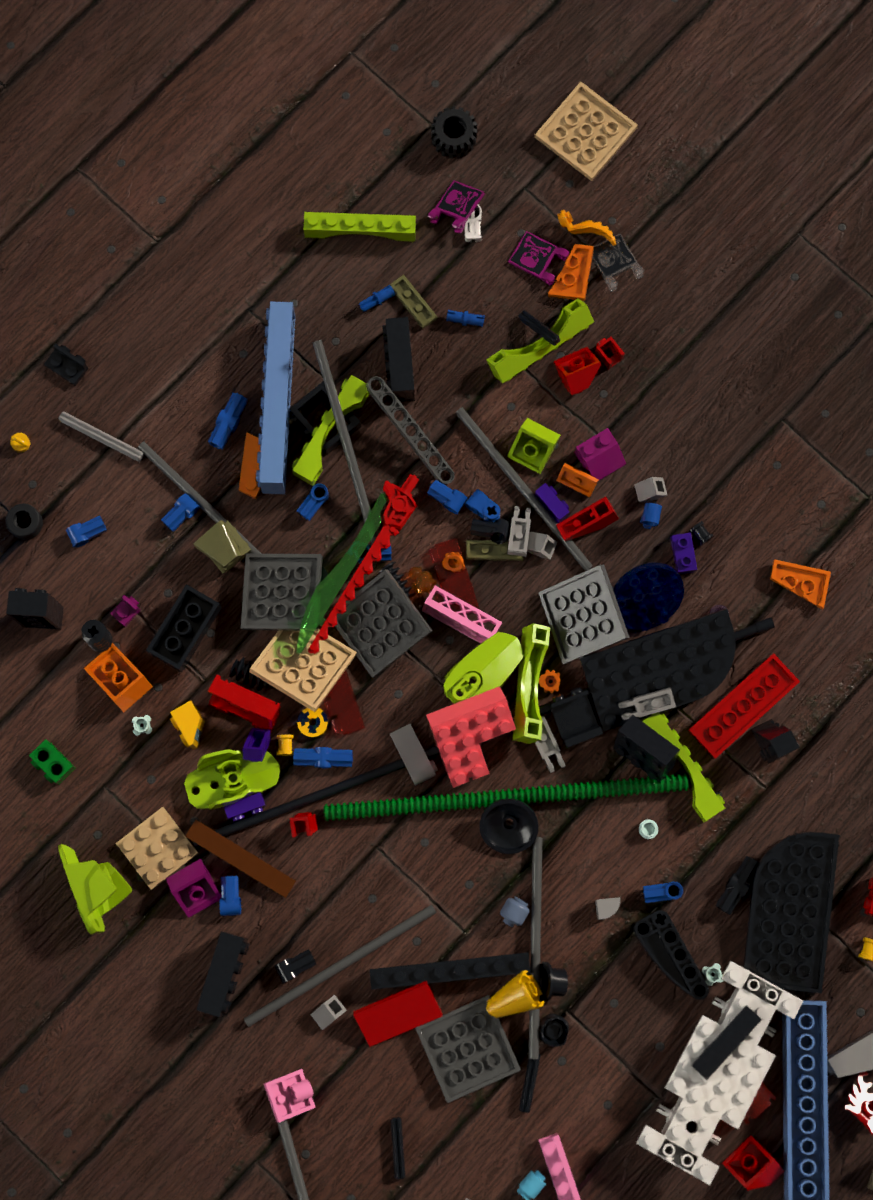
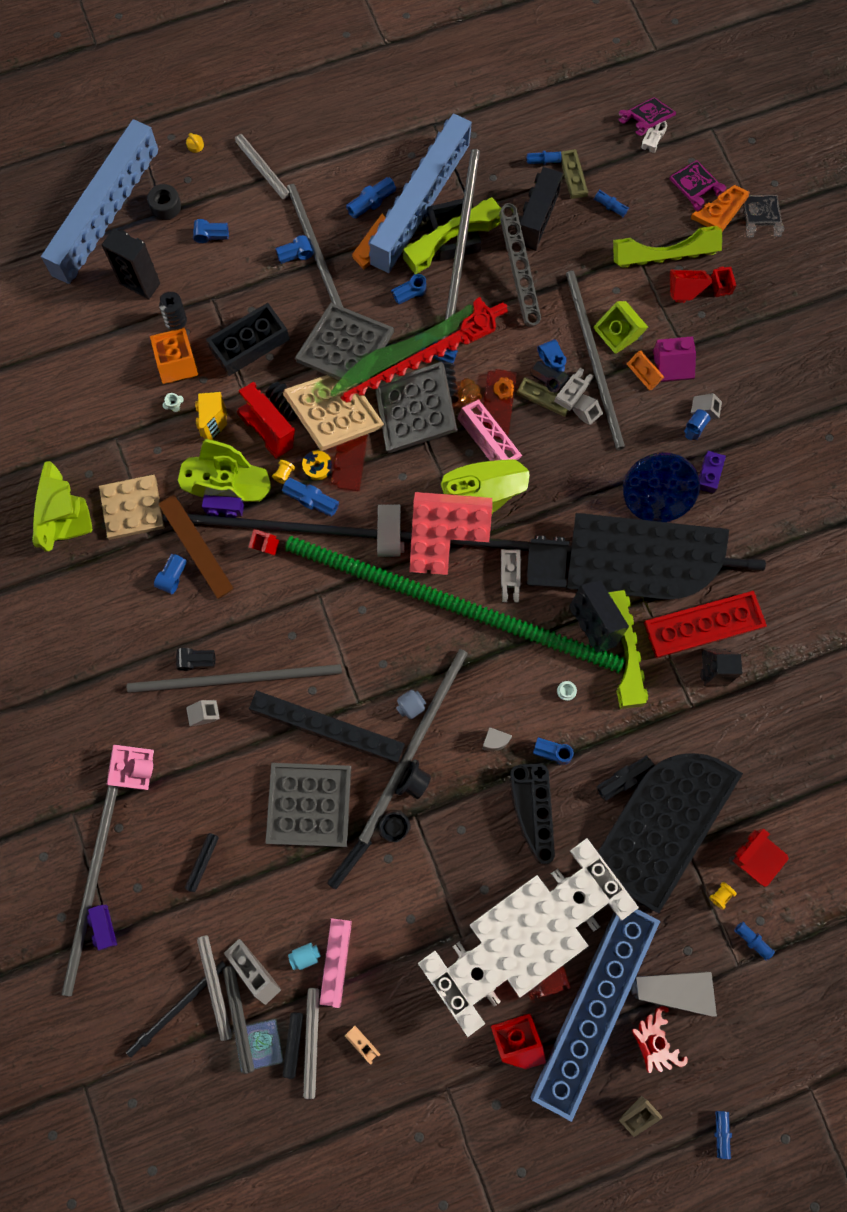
camera: 25 degrees right, 5 degrees down
(55, 758) = (85, 395): green brick -> none
(66, 365) = (263, 101): black bracket -> none
(126, 610) = (209, 307): magenta bracket -> none
(194, 888) = (143, 553): magenta slope -> none
(222, 974) = (127, 634): black brick -> none
(223, 545) = (314, 287): olive piece -> none
(256, 744) = (258, 458): dark purple piece -> none
(332, 224) = (530, 83): lime arch -> none
(397, 1013) = (262, 742): red tile -> none
(451, 499) = (527, 337): blue piece -> none
(458, 119) = (676, 48): black tyre -> none
(509, 836) = (431, 631): black dish -> none
(516, 996) = (374, 776): yellow cone -> none
(527, 714) = (506, 538): lime arch -> none
(539, 327) = (671, 235): black axle -> none
(544, 681) = (537, 520): orange animal -> none
(557, 508) = (613, 376): dark purple piece -> none
(583, 614) = (597, 477): dark grey plate -> none
(585, 227) = (749, 175): light orange plant -> none
(586, 131) = (785, 104): tan plate -> none
(588, 520) = (640, 405): red slope -> none
(649, 703) = (621, 579): light grey hinge -> none
(701, 533) = (734, 462): black bush -> none
(716, 970) = (559, 851): light aqua plate -> none
(726, 1042) = (547, 909): black tile -> none
(802, 580) = (808, 542): orange wing -> none

